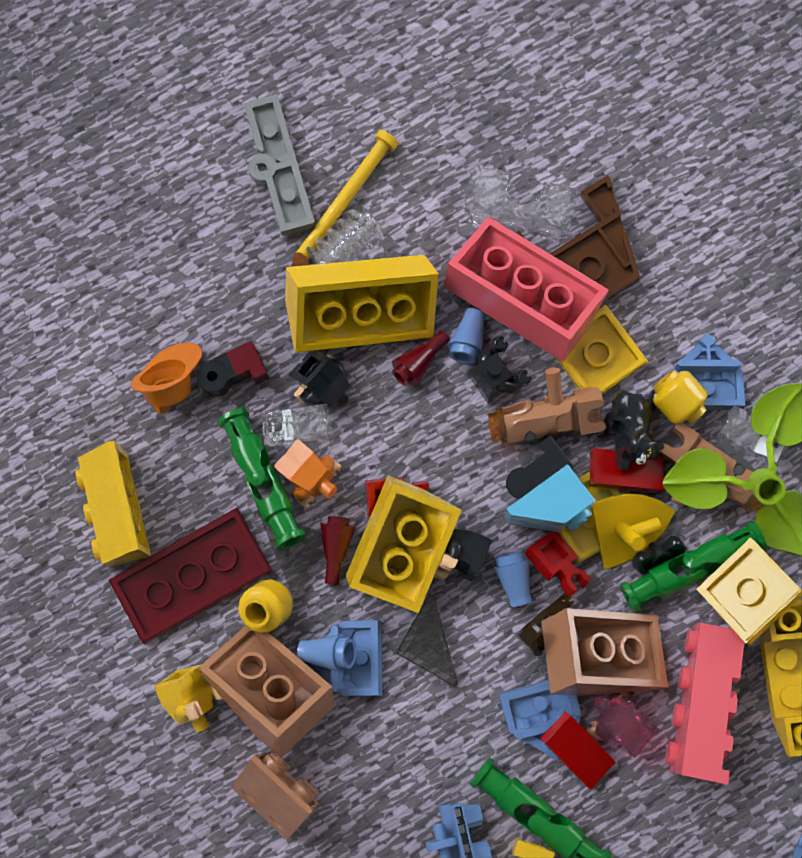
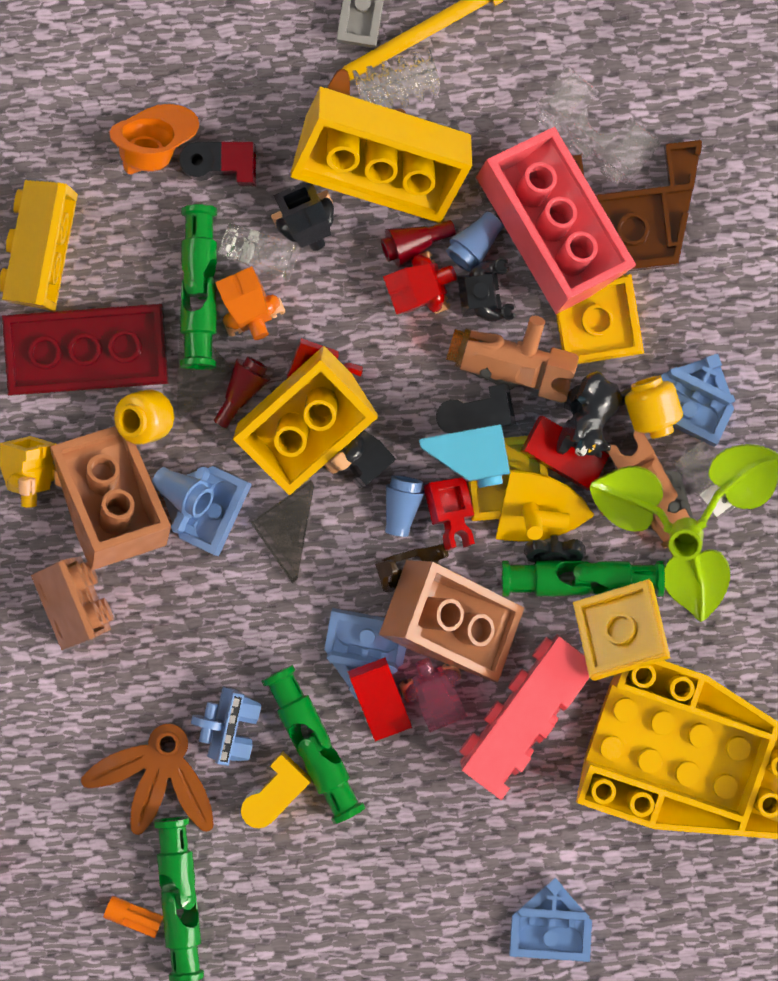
camera: 25 degrees right, 10 degrees up
(442, 391) = (420, 285): none -> red piece

